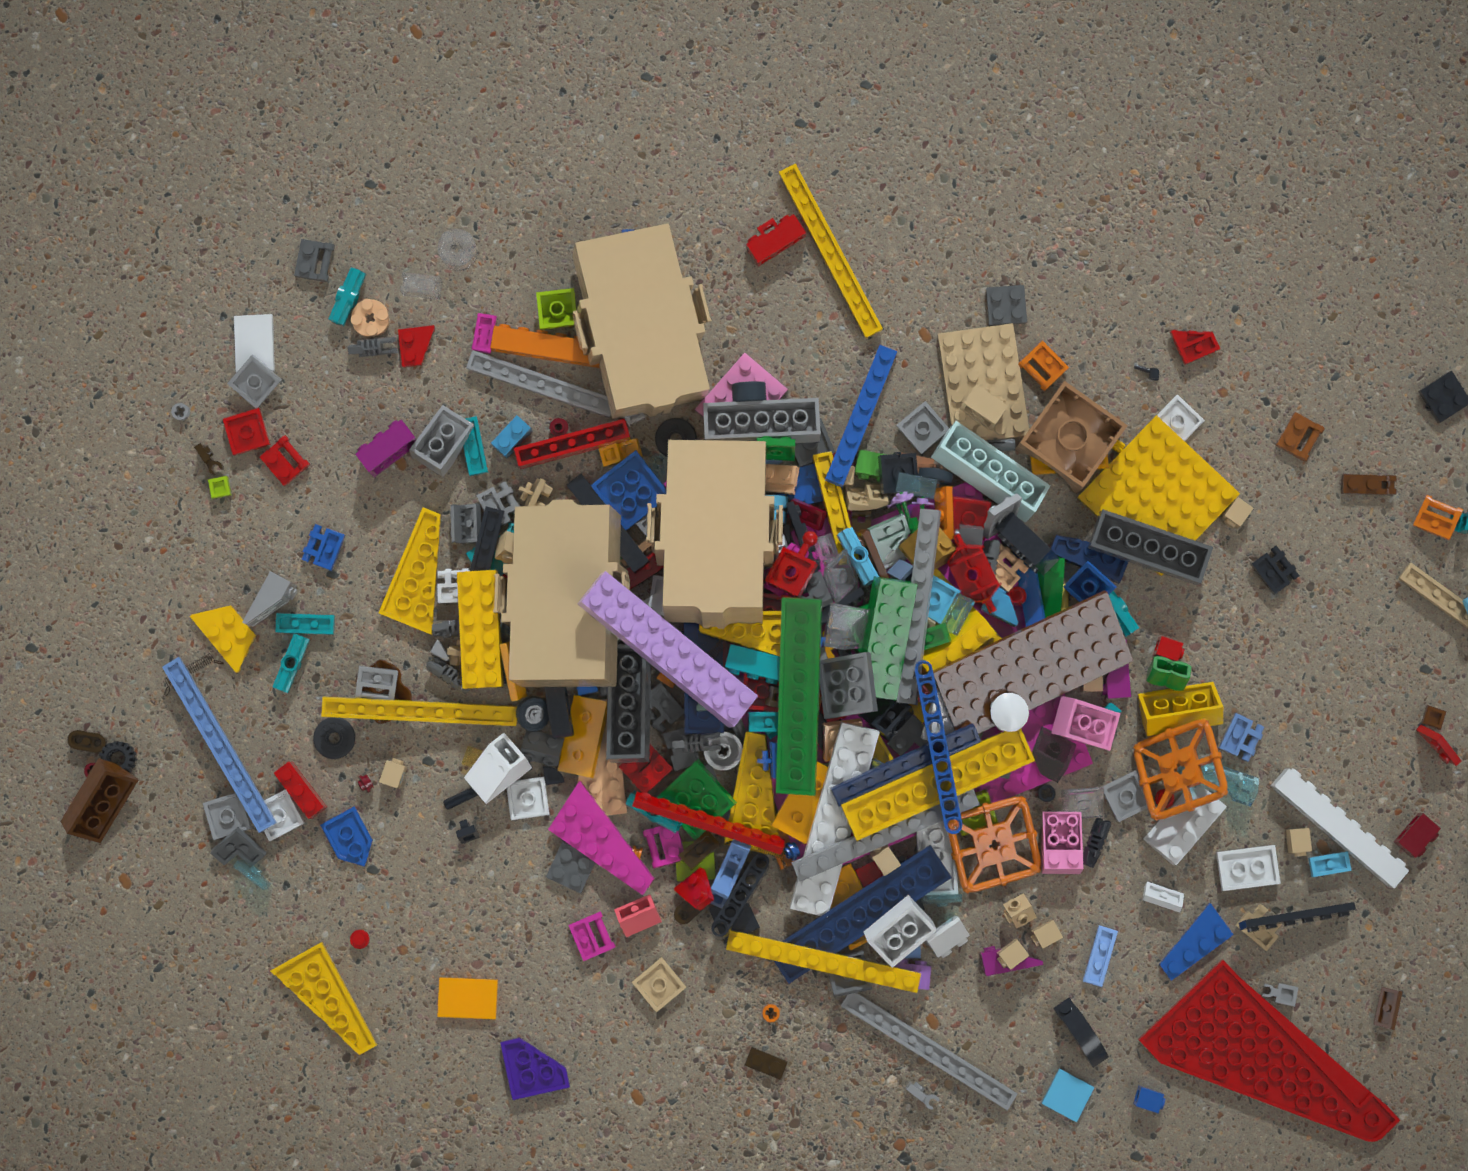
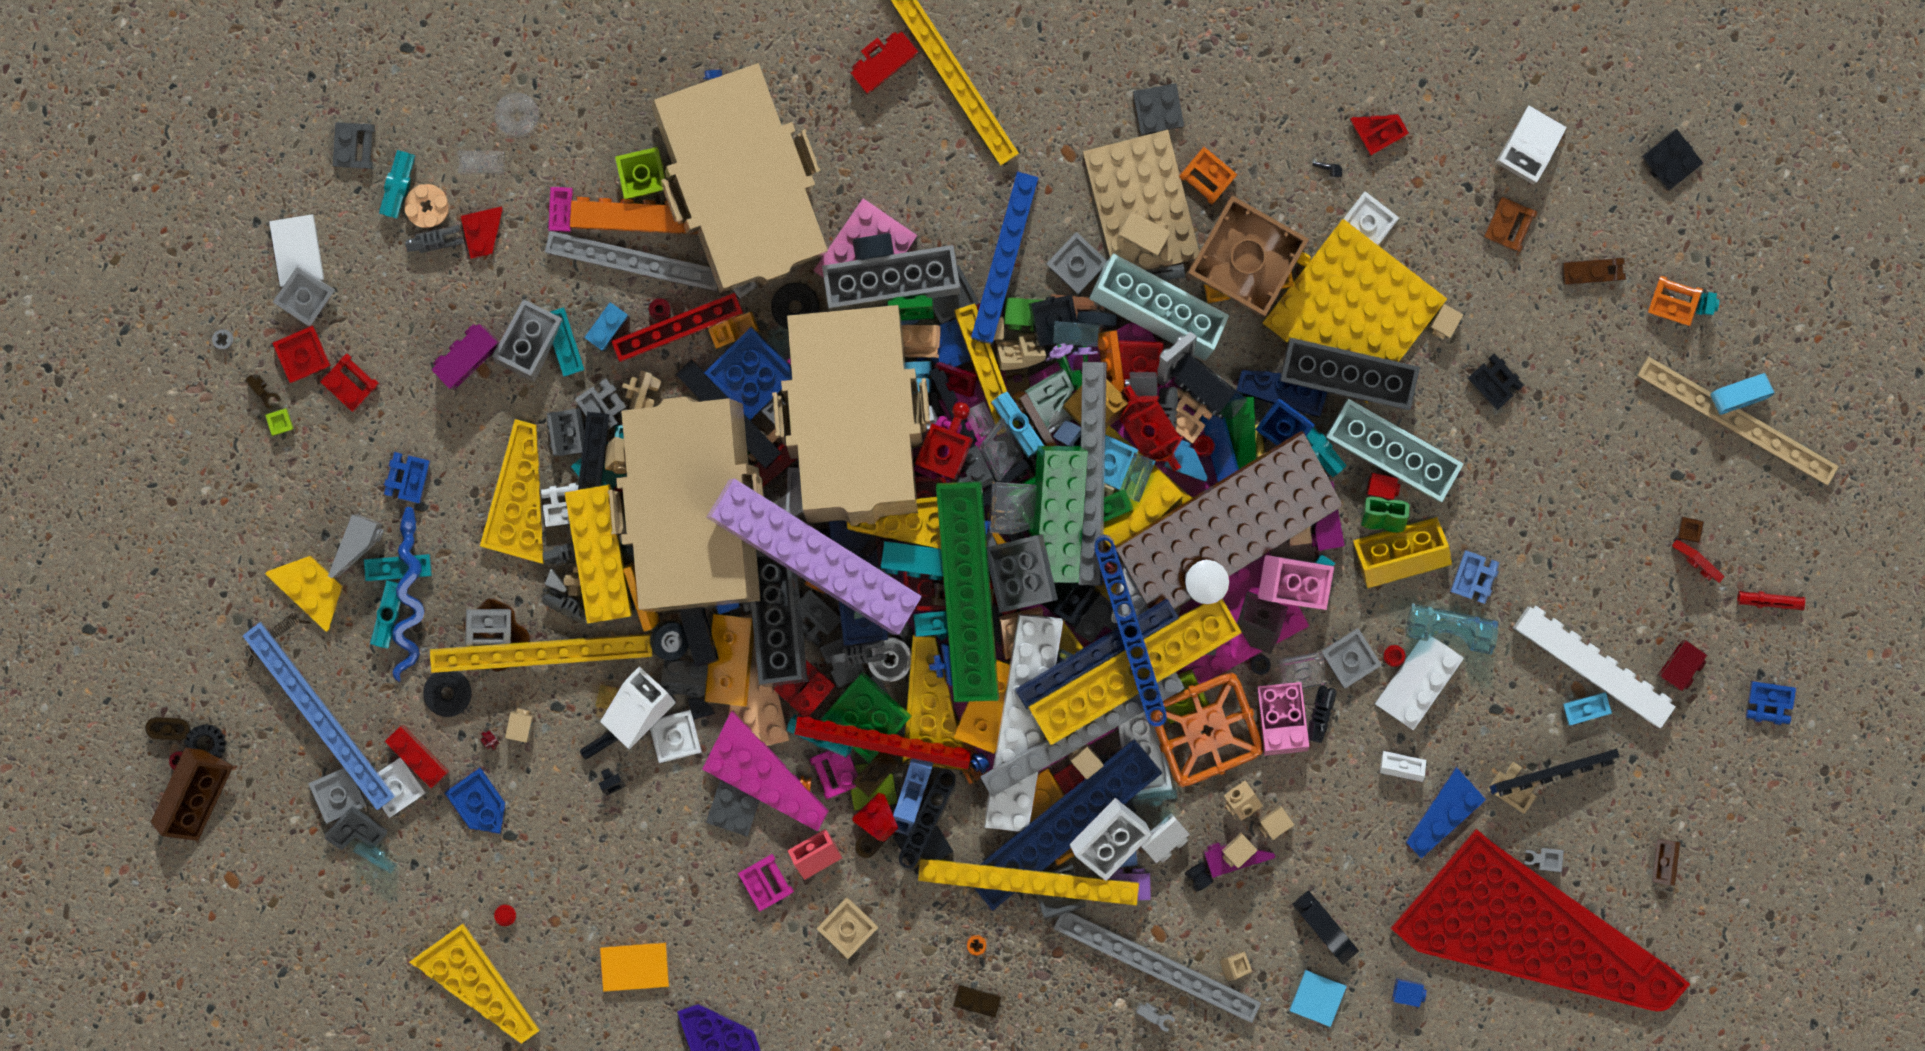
camera: 10 degrees left, 5 degrees up
(318, 591) = (407, 529): none -> blue animal
(973, 974) = (1199, 877): none -> black wheel
(997, 1058) = (1235, 966): none -> tan slope
(1100, 956) = (1339, 840): light blue tile -> none
(1182, 619) = (1394, 450): none -> light aqua brick
(1190, 776) = (1418, 630): orange plate -> none
(1248, 867) = (1495, 723): white plate -> none
(1299, 841) = (1549, 687): tan brick -> none
(1324, 371) = (1531, 145): none -> white slope

